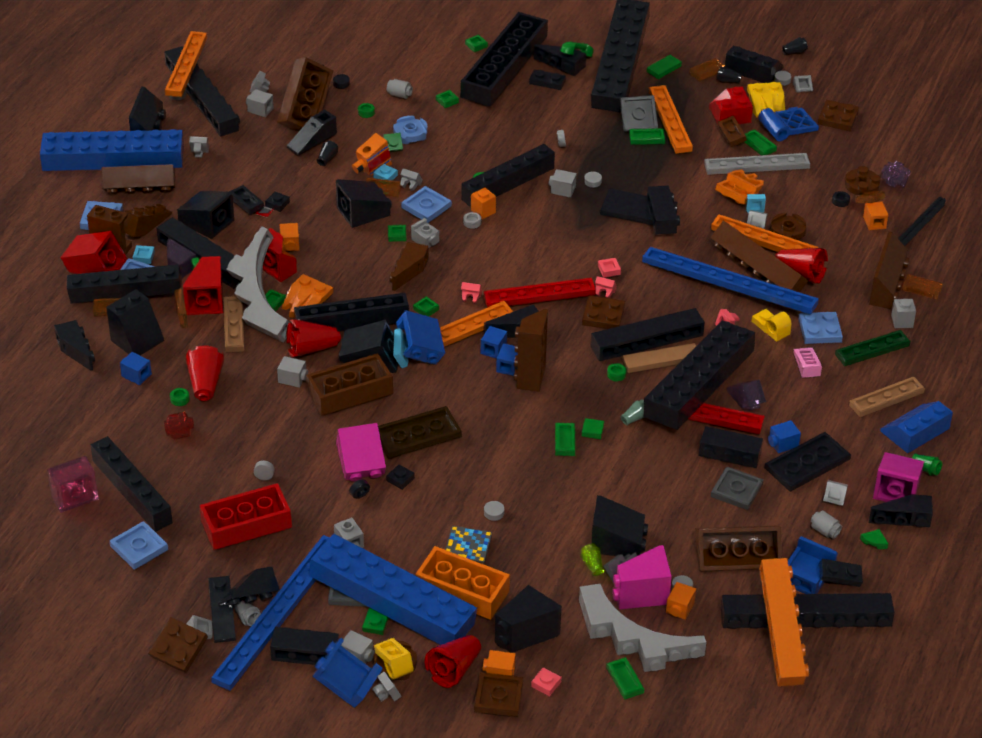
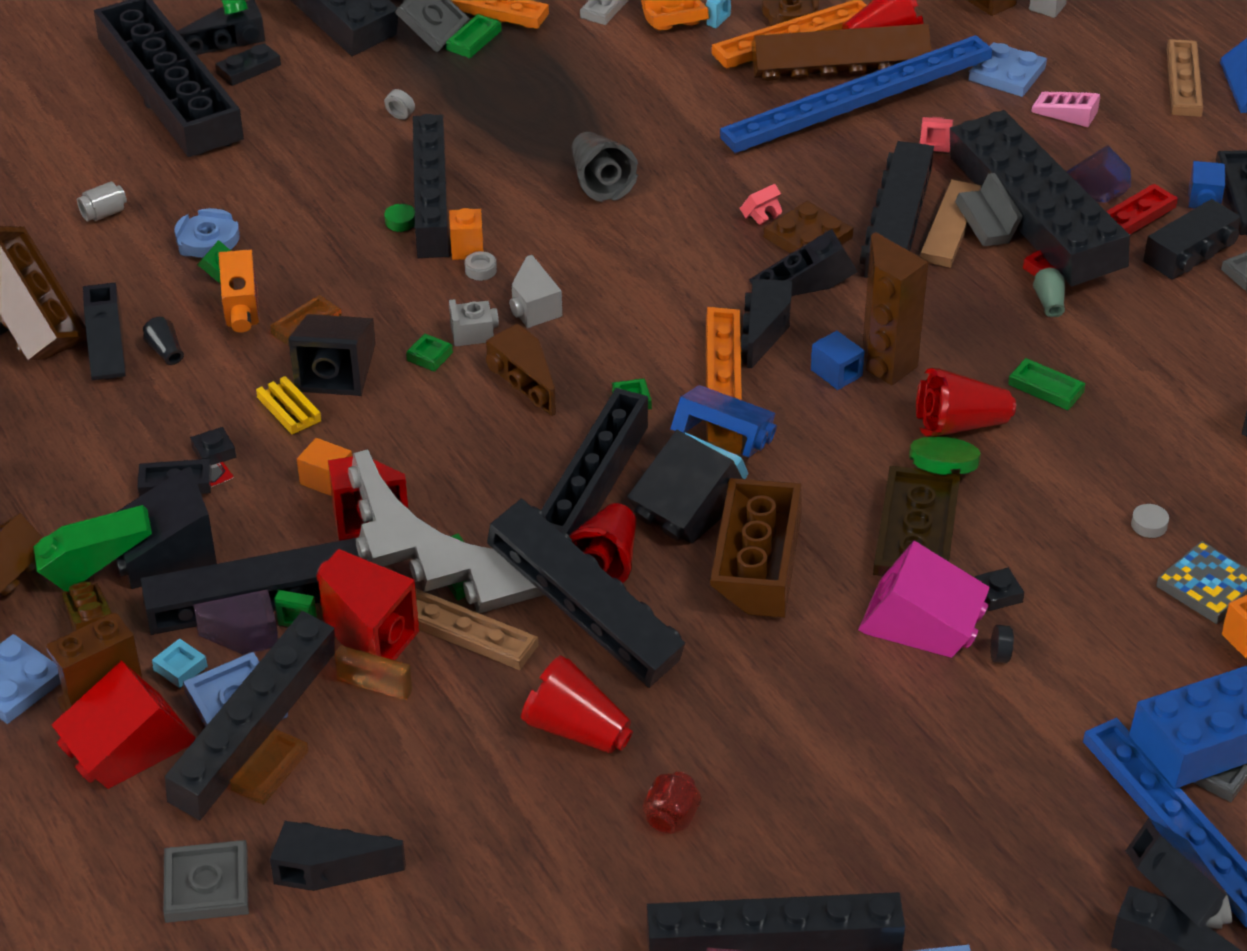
camera: 55 degrees left, 0 degrees up
(40, 319) = (206, 881): none -> dark grey tile
(134, 324) = (377, 747): black slope -> none
(135, 368) = (472, 799): blue brick -> none
(175, 193) = (87, 546): none -> green slope
(179, 397) = (587, 774): green tile -> none
(245, 516) = (980, 809): red brick -> none
(264, 470) = (870, 739): light grey tile -> none
(266, 342) = (586, 592): none -> black brick
(292, 371) = (664, 597): light grey brick -> none
(306, 292) = (479, 502): orange plate -> none
(319, 209) = (294, 403): none -> yellow tile
(350, 531) = (1102, 700): light grey brick -> none
(366, 110) = (103, 260): green tile -> none
(385, 172) = (277, 303): medium azure plate -> none
(410, 177) = (327, 278): light grey tile -> none
(426, 204) = (401, 292): medium blue plate -> none
(447, 99) = (175, 171): green tile -> none
(463, 243) = (535, 294): none -> light grey slope
(471, 289) = (648, 330): coral tile -> none
(471, 421) = (943, 454): none -> green tile
(476, 43) = (83, 90): green tile -> none
(493, 341) = (785, 358): blue brick -> none
(509, 410) = (960, 404): none -> red cone
(541, 292) = (713, 271): red plate -> none
(563, 183) = (500, 144): light grey brick -> none
(571, 323) = (813, 267): none -> black slope
(574, 220) = (603, 166): none -> dark grey cone
(592, 428) = (1046, 347): green tile -> none
(593, 179) = (514, 119): light grey tile -> none
(609, 267) = (722, 184): coral plate -> none
(616, 372) = (944, 275): green tile -> none
(627, 206) = (619, 105): black tile -> none
(662, 210) = (662, 82): black brick -> none
(670, 362) = (990, 212): none -> dark grey panel
(757, 219) = (754, 19): light grey tile -> none
(775, 326) = (976, 102): yellow plate -> none
(872, 348) = (1082, 48): dark green tile -> none

